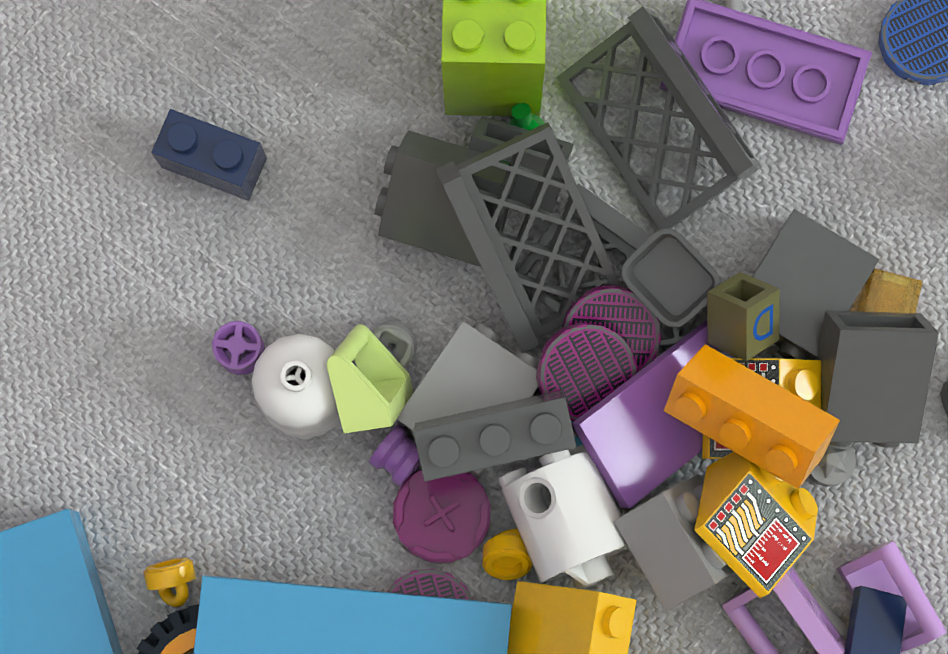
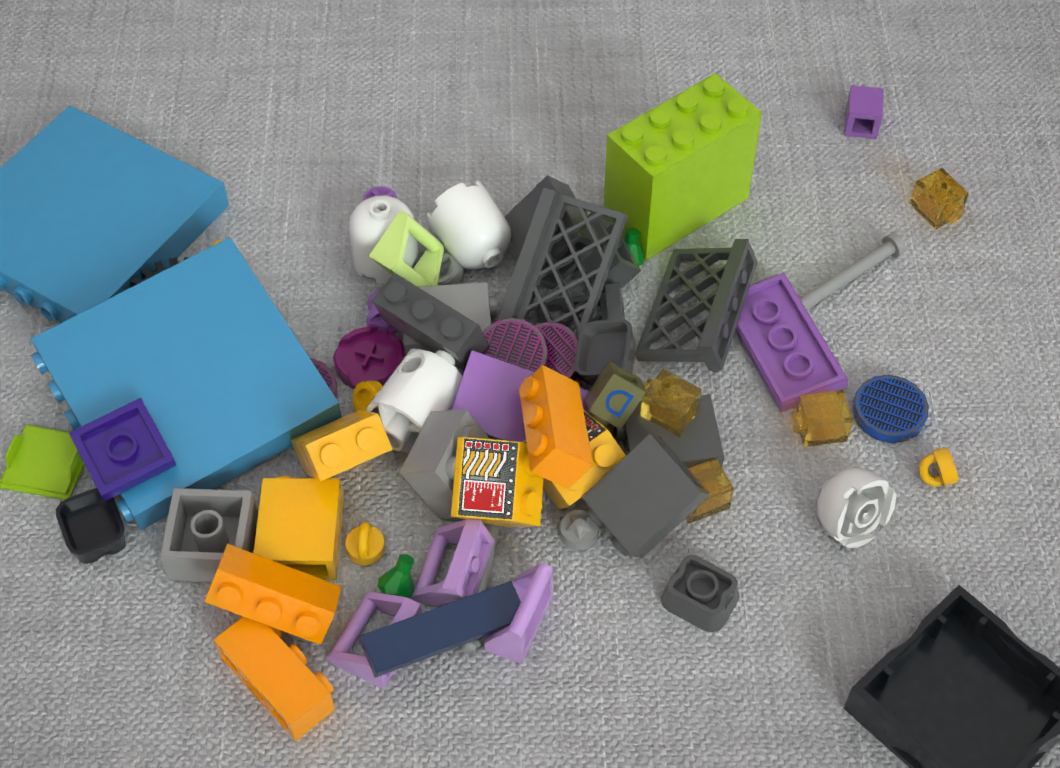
camera: 50 degrees right, 25 degrees down
(209, 154) = (475, 128): dark blue piece -> none
(371, 278) = (470, 226): none -> white cylinder
(790, 262) = (670, 402): none -> clear yellow brick
(895, 117) = (822, 418): none -> clear yellow brick

